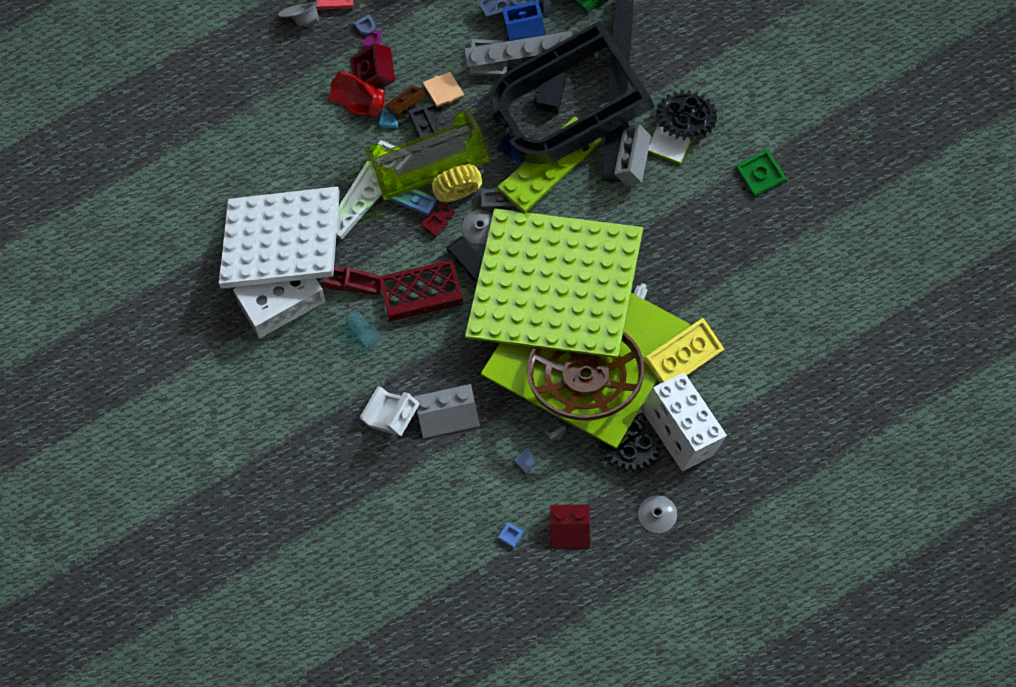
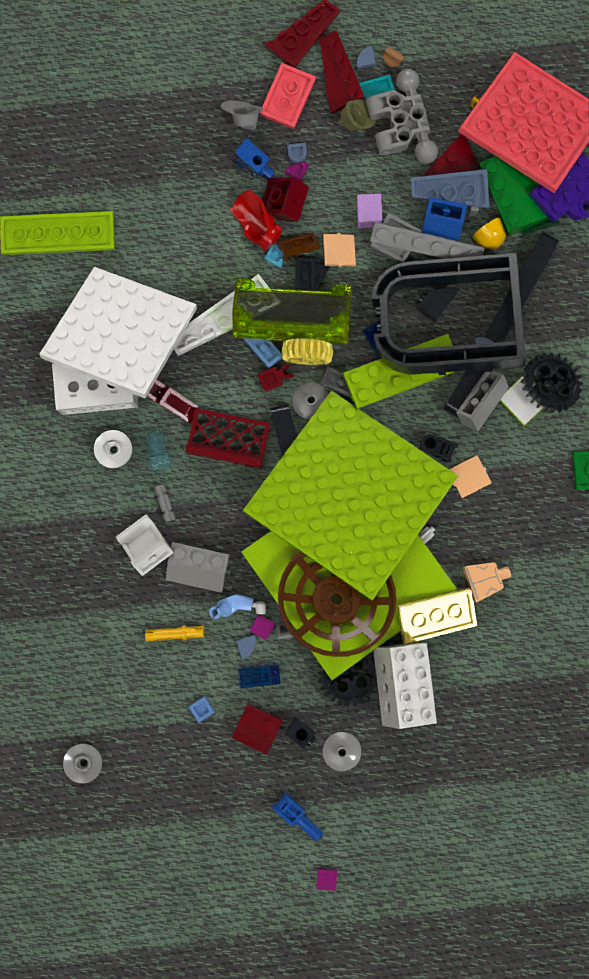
camera: 25 degrees right, 15 degrees up
(181, 185) = (57, 233): none -> lime plate
(316, 337) = (103, 447): none -> white dish
(329, 47) = (247, 155): none -> blue torso
(389, 371) = (164, 503): none -> light grey axle
(421, 621) = (73, 767): none -> light grey dish
(452, 44) = (368, 210): none -> lavender piece
(457, 477) = (174, 633): none -> yellow pin
(497, 426) = (236, 602): none -> light blue arm
(531, 438) = (262, 627): none -> magenta tile
(550, 482) = (259, 676): none -> clear blue slope
(571, 18) = (491, 235): none -> yellow helmet
(607, 505) = (294, 727): none -> black brick
(614, 213) = (439, 448): none -> black piece
(639, 586) = (294, 813): none -> blue connector
(655, 227) = (471, 476): none -> light nougat piece
(699, 631) = (326, 879): none -> magenta tile
(711, 305) = (485, 579): none -> light nougat torso

